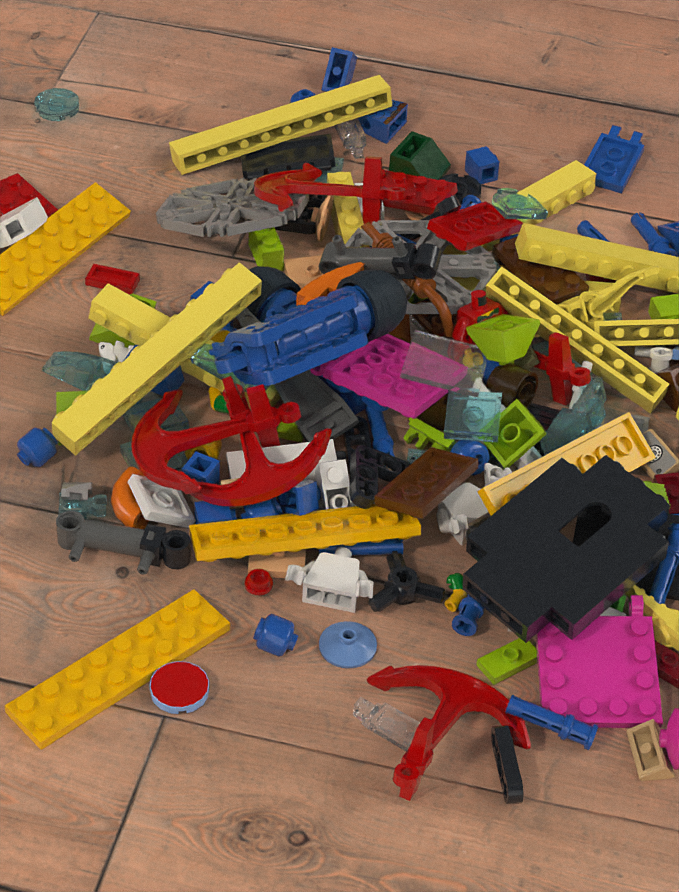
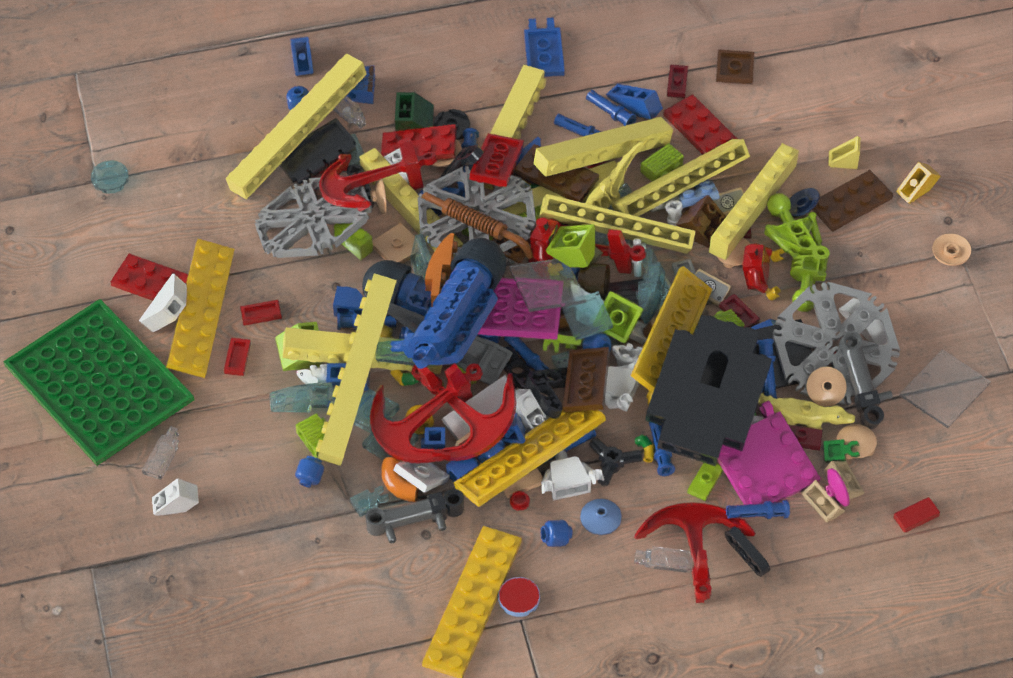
camera: 25 degrees left, 10 degrees up
(53, 309) = (237, 356): none -> red tile
(76, 491) = (360, 491): light grey slope -> none
(402, 260) = (480, 219): piece -> none
(482, 165) = (457, 96): blue brick -> none
(517, 206) = (510, 126): clear light blue tile -> none

